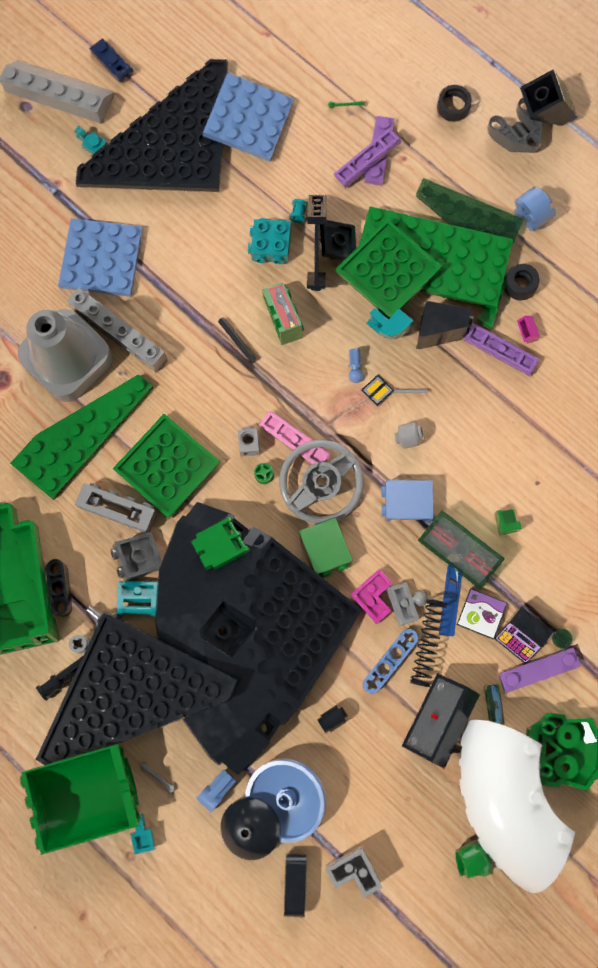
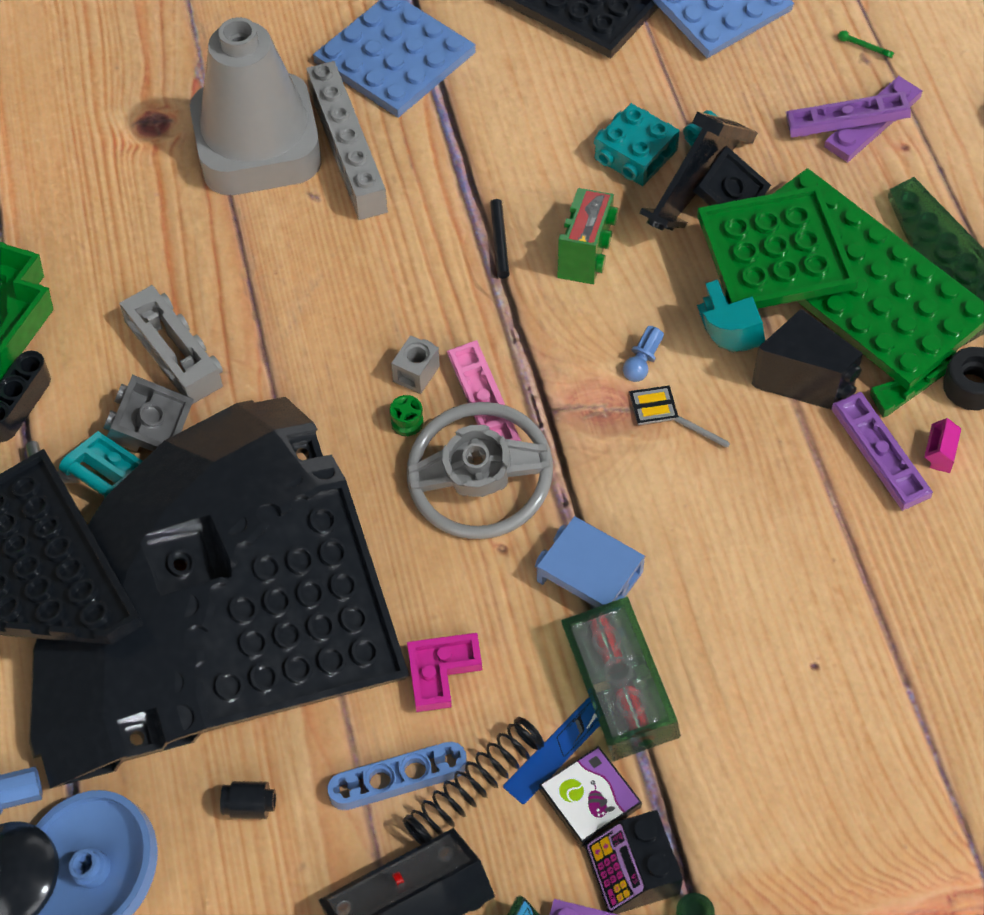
camera: 30 degrees right, 20 degrees down
(65, 447) = (174, 239): green wing -> none
(166, 466) = (281, 333): green plate -> none
(219, 544) = (263, 441): green plate -> none
(326, 547) = (419, 559): green panel -> none
(404, 604) = (479, 705): light grey plate -> none
(409, 435) = (656, 482): light grey head -> none
(507, 522) = (723, 688): green panel -> none

